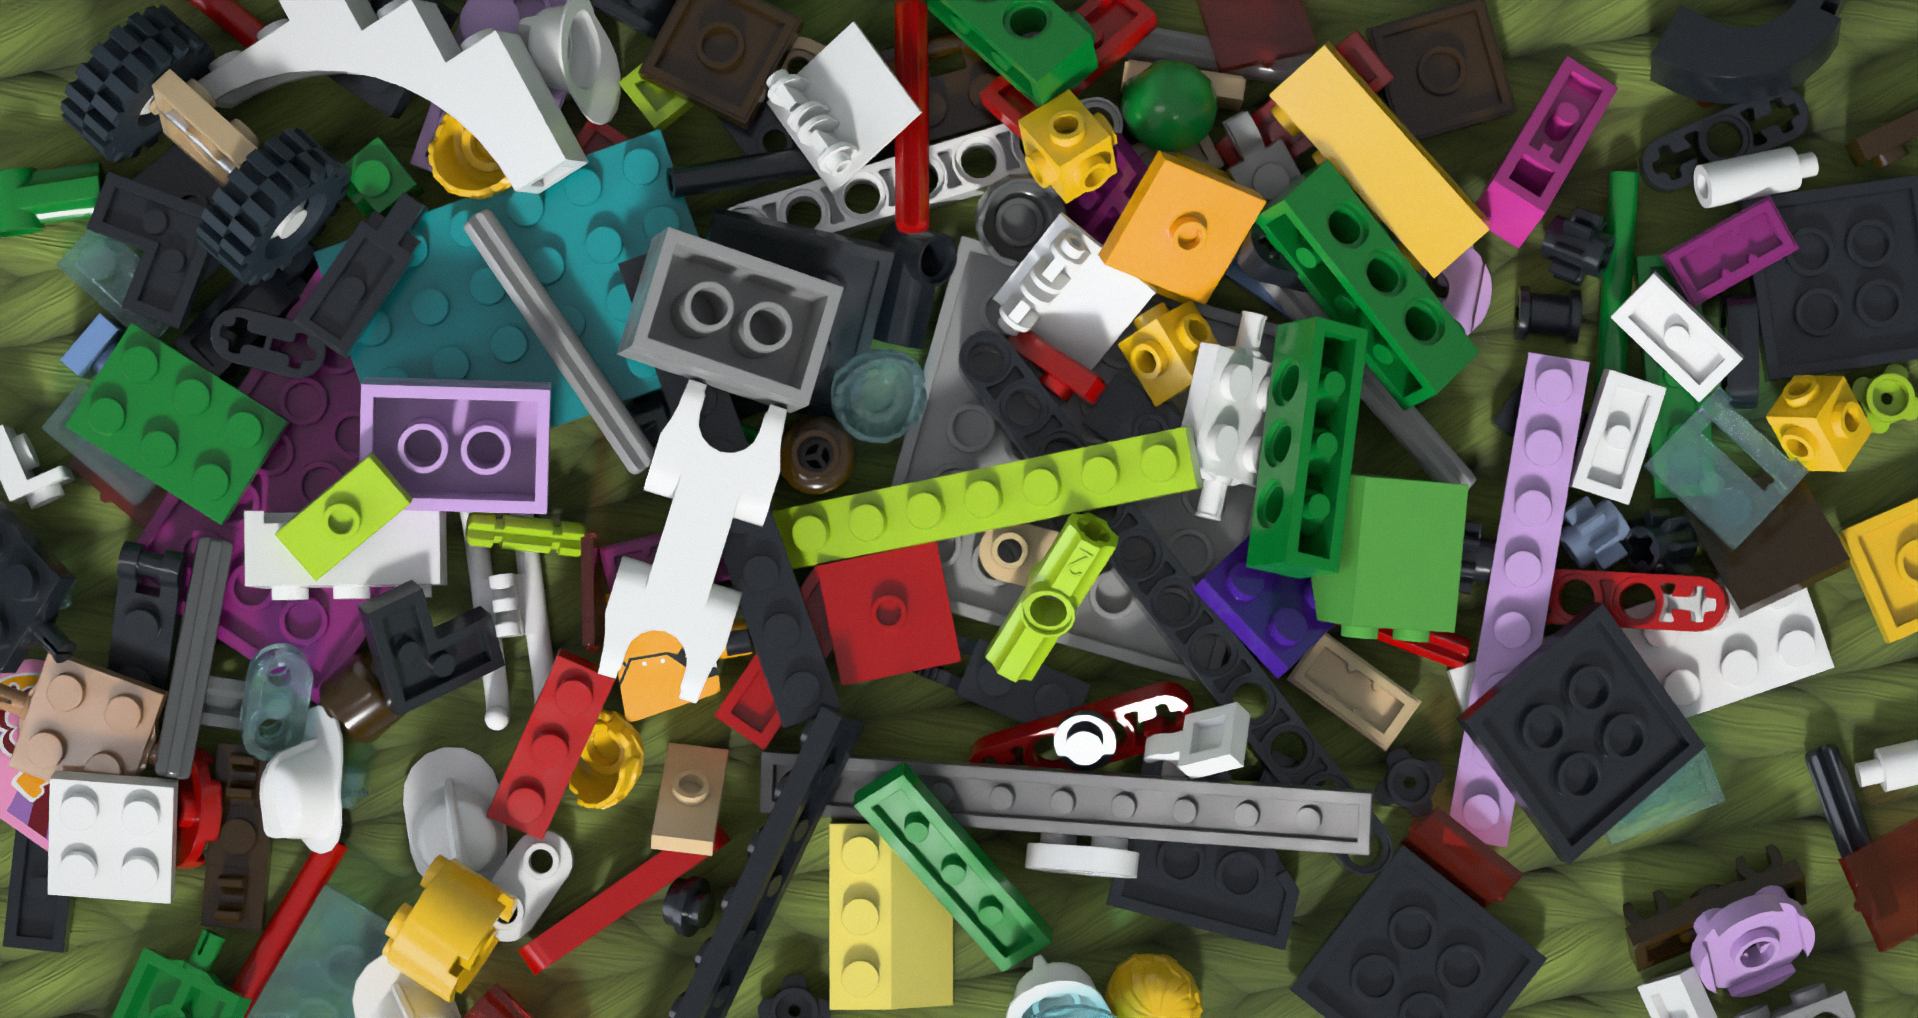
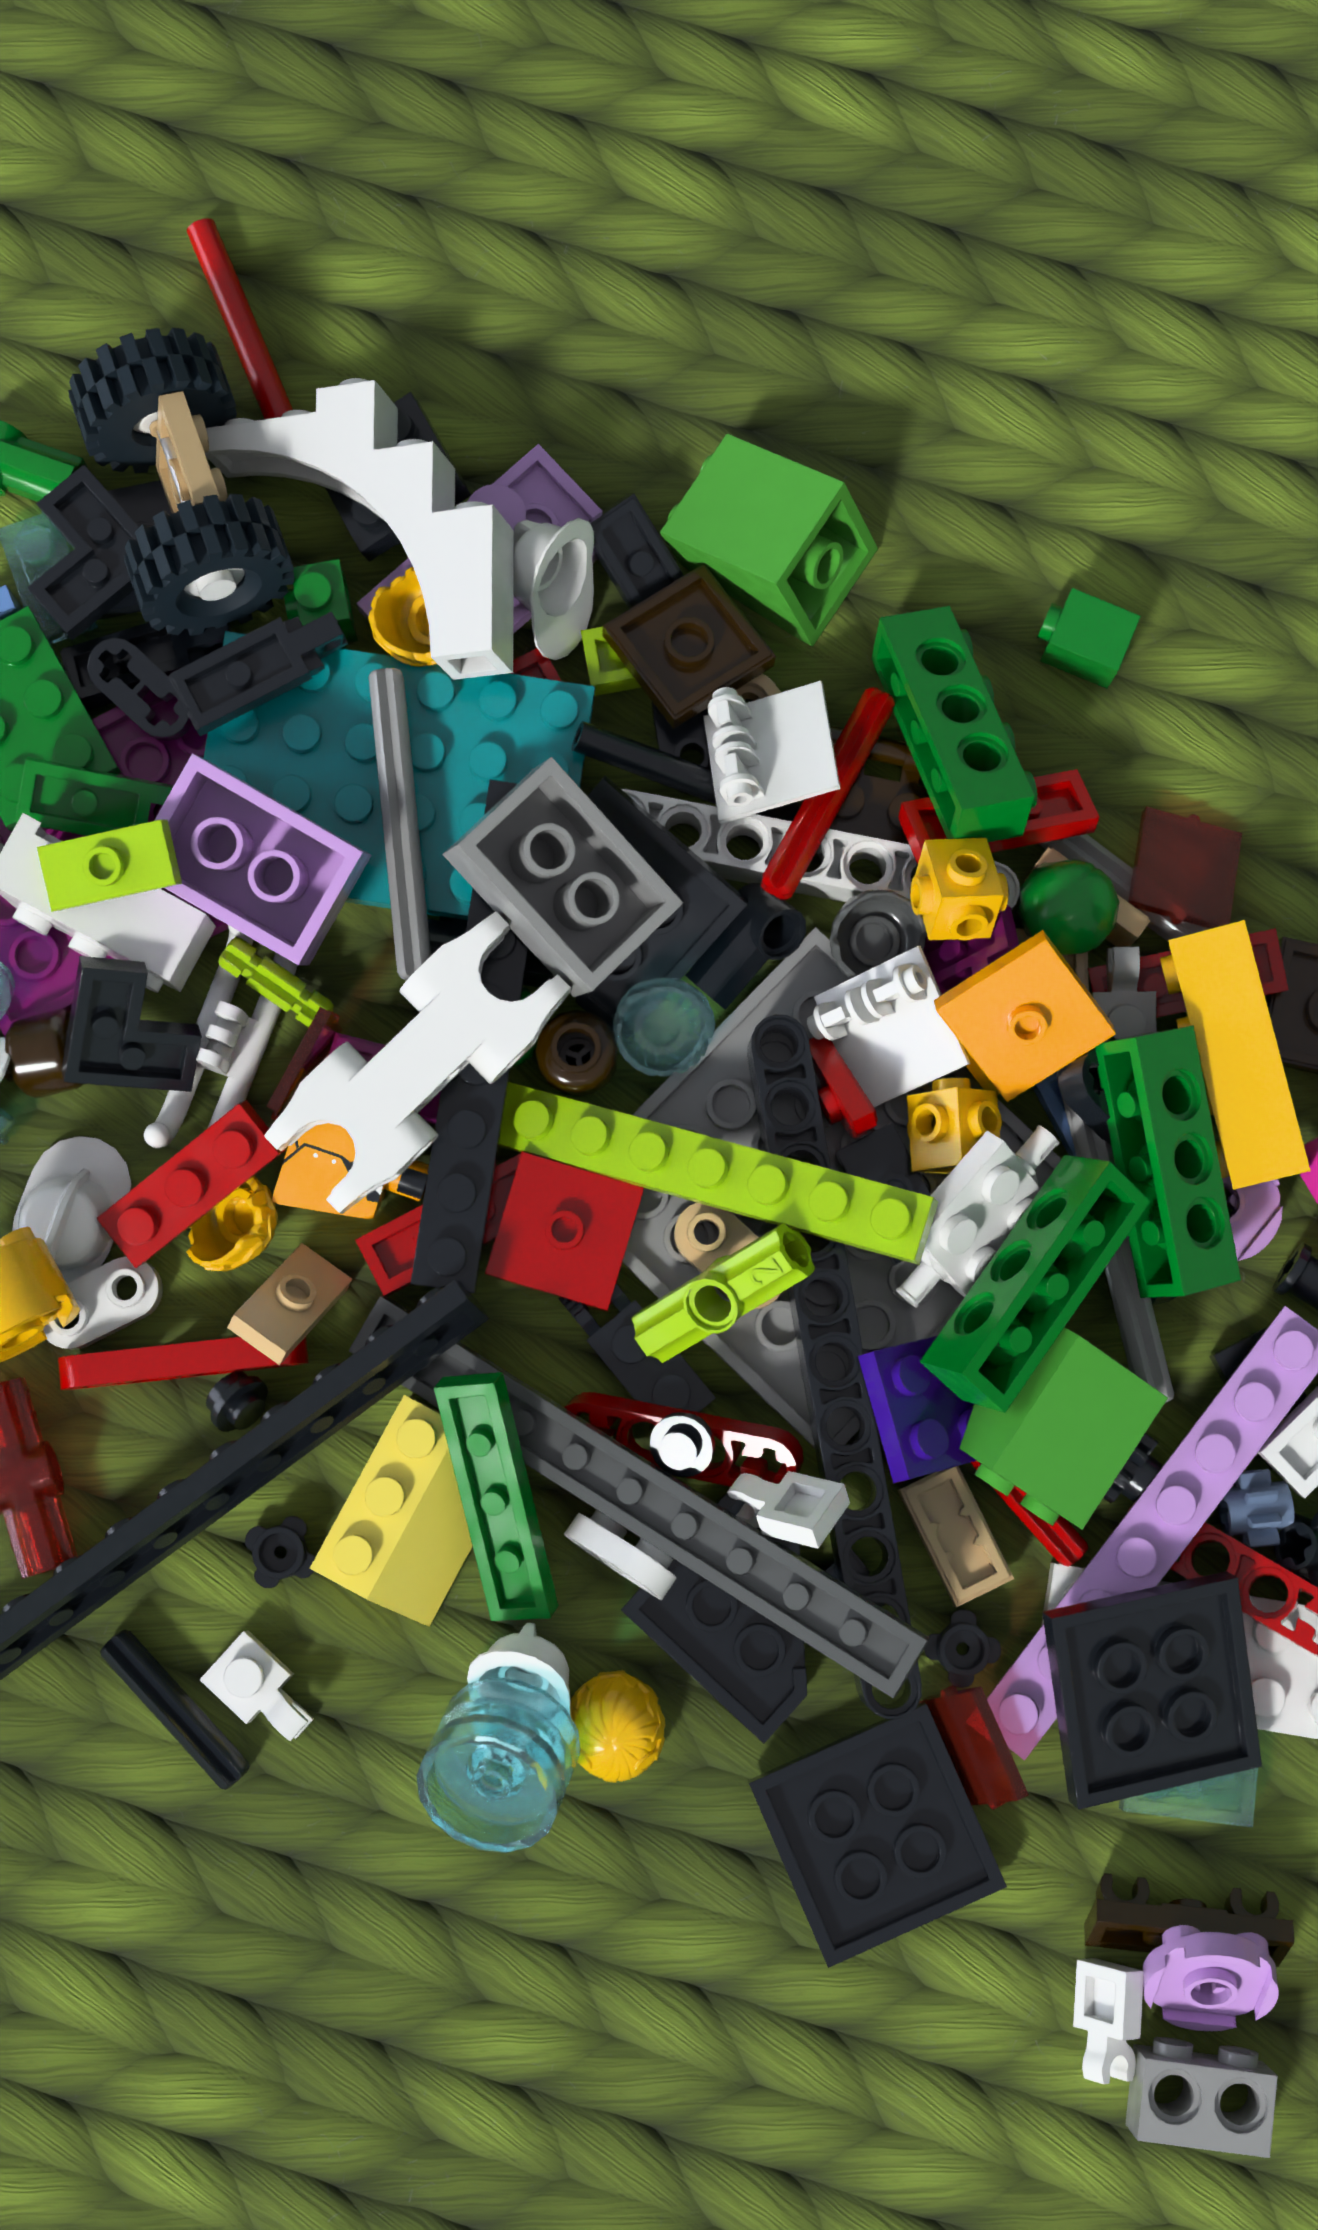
camera: 25 degrees right, 5 degrees down
(287, 464) = (84, 798): none -> green plate

